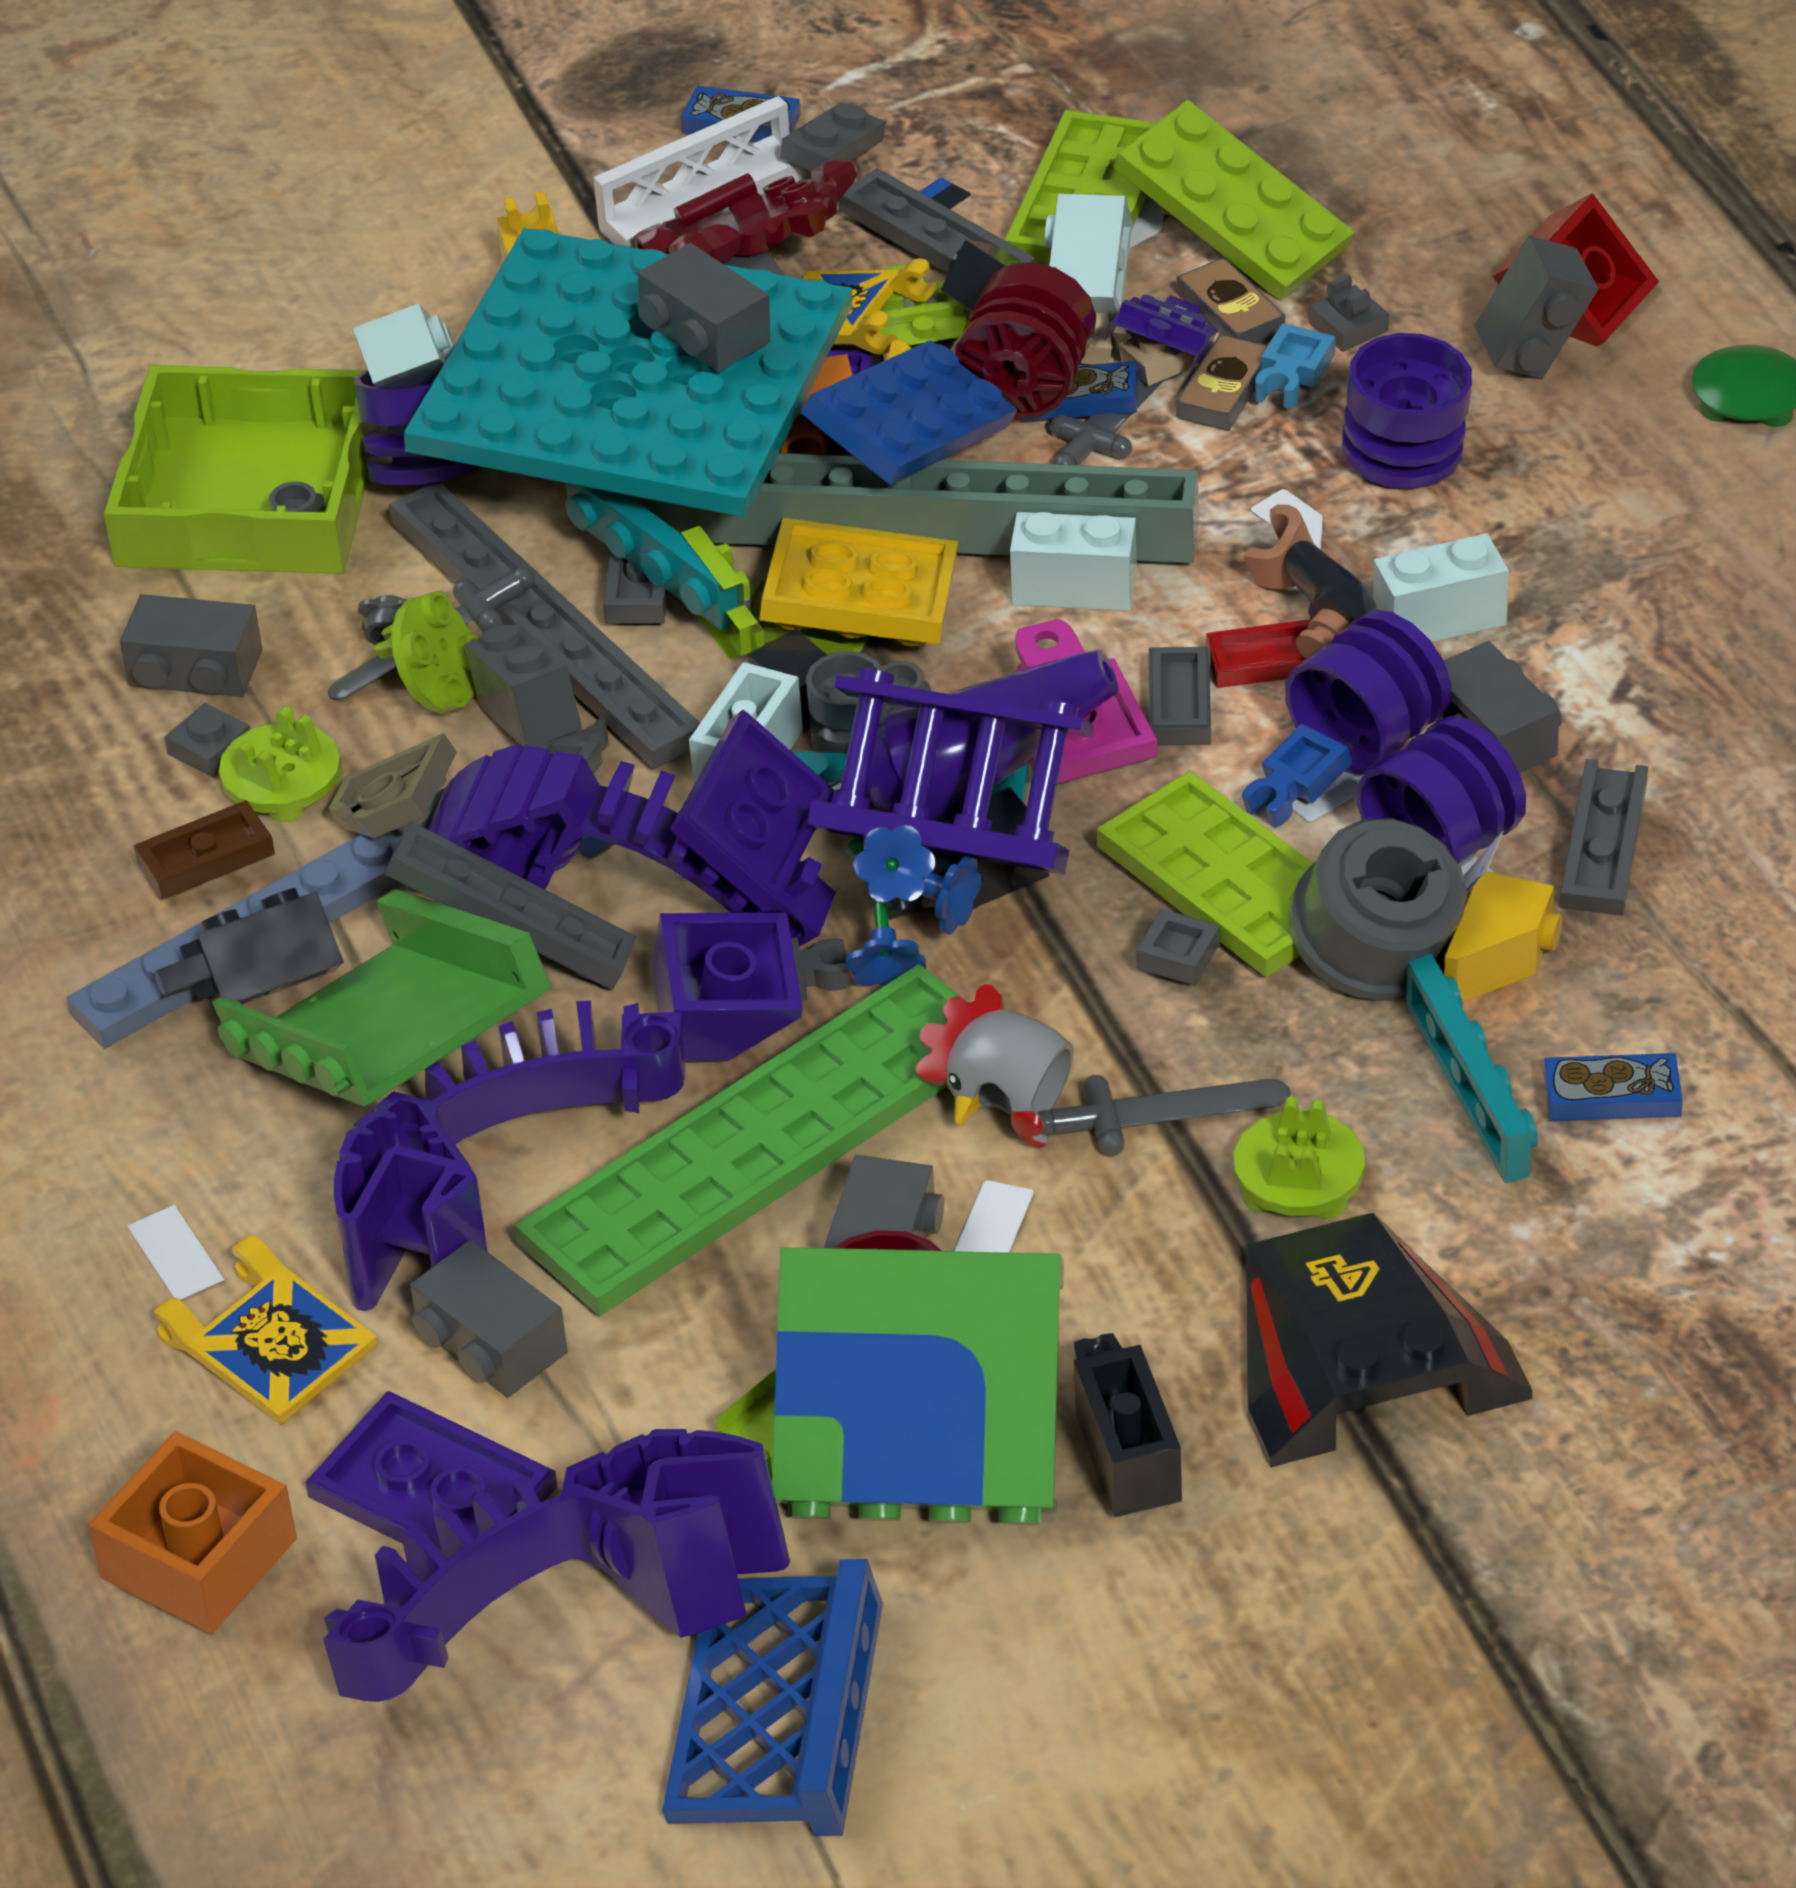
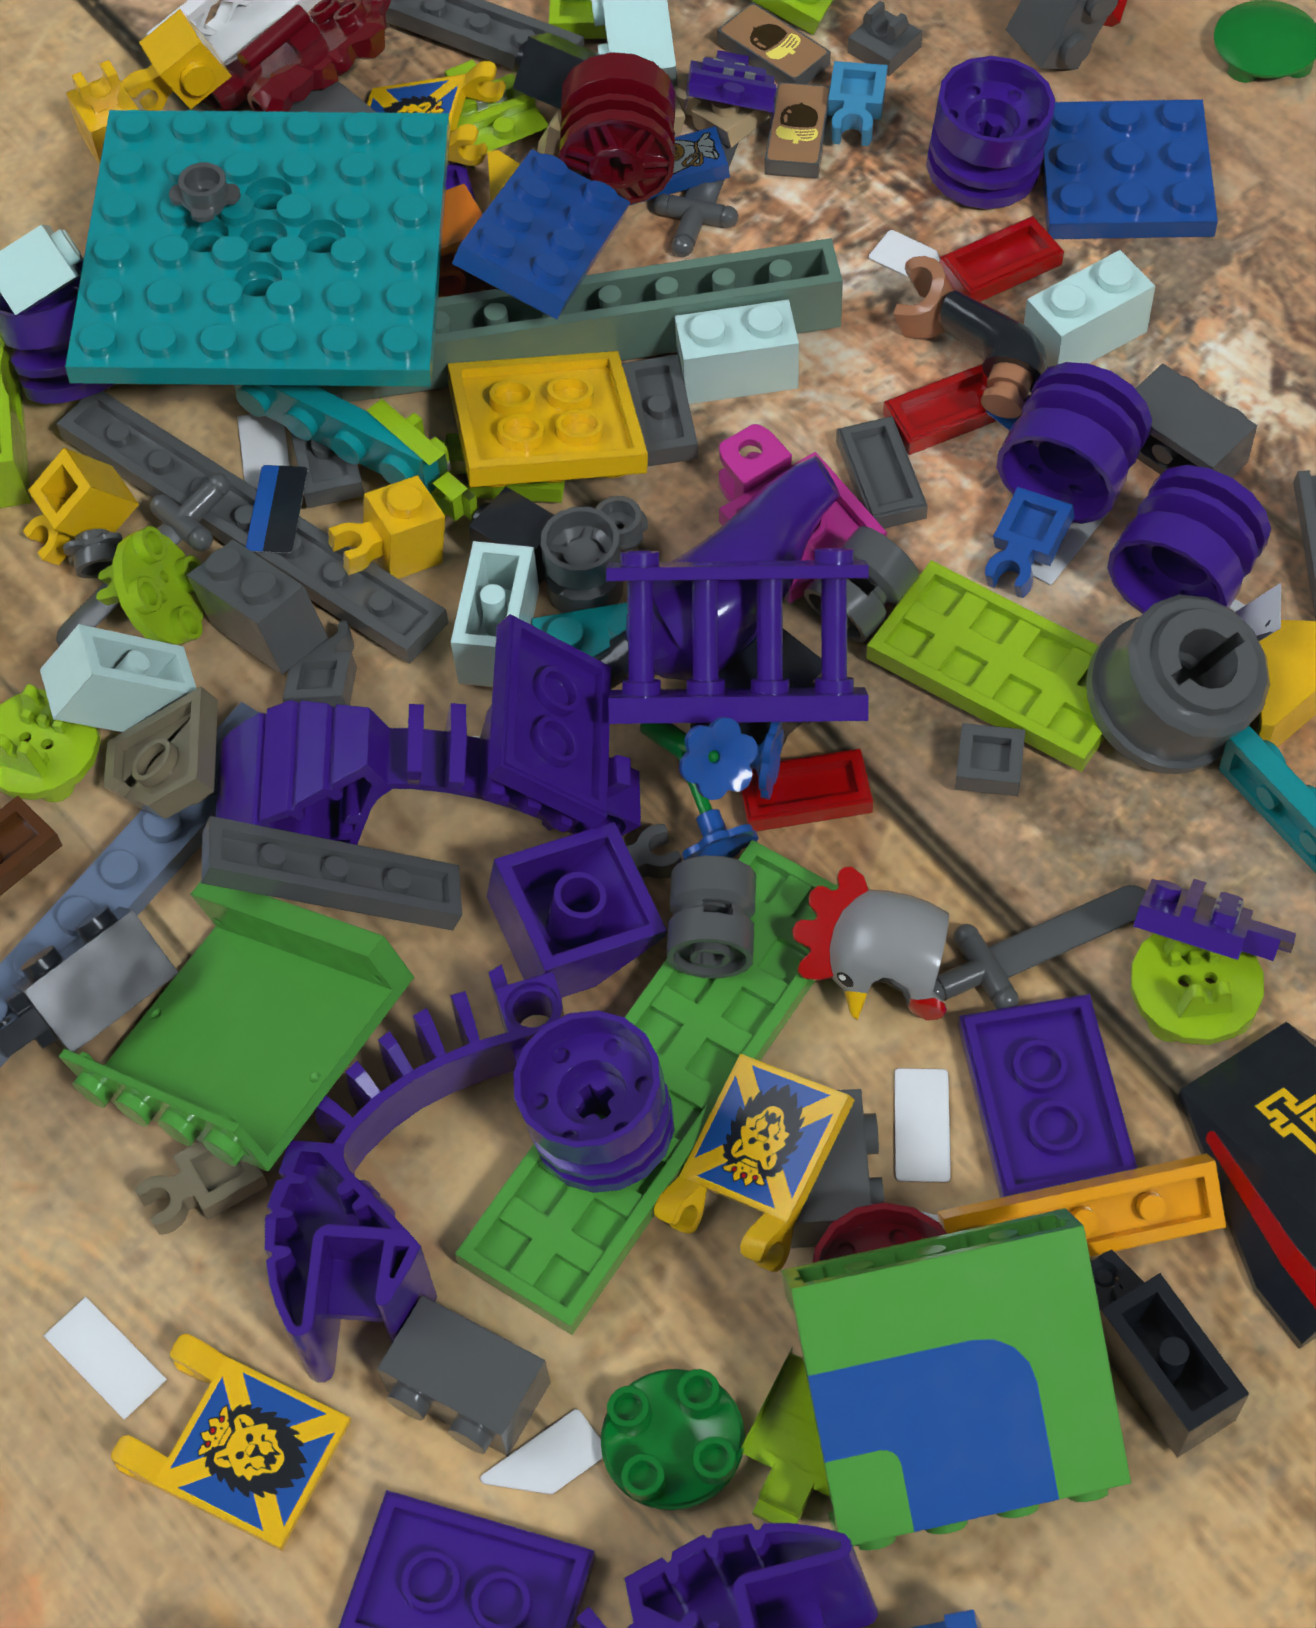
camera: 15 degrees left, 15 degrees up
(313, 1129) = (201, 1182): none -> dark tan plate
(364, 712) = (113, 678): none -> light aqua brick
(381, 563) = (74, 498): none -> yellow brick
(545, 1406) = (549, 1458): none -> white sticker
(573, 612) = (276, 509): none -> black sticker
(583, 570) = (261, 444): none -> white sticker
(584, 307) = (204, 191): none -> dark grey plate
(618, 208) = (181, 64): none -> yellow brick
(656, 1395) = (672, 1438): none -> green dish
(677, 1114) = (589, 1067): none -> dark purple wheel
(681, 652) = (398, 530): none -> yellow brick
(704, 307) = (323, 169): dark grey brick -> none
(816, 1193) = (760, 1151): none -> flag
(847, 1003) = (712, 917): none -> dark grey wheel
(978, 601) = (662, 409): none -> dark grey plate
(994, 944) = (810, 792): none -> red tile
(1119, 1227) = (1045, 1094): none -> dark purple tile
(1130, 769) = (889, 580): none -> dark grey wheel
(1153, 1315) = (1116, 1208): none -> light orange plate
(1322, 1103) = (1209, 922): none -> dark purple piece
(1380, 531) = (1002, 260): none -> red tile
(1547, 475) = (1128, 170): none -> blue plate

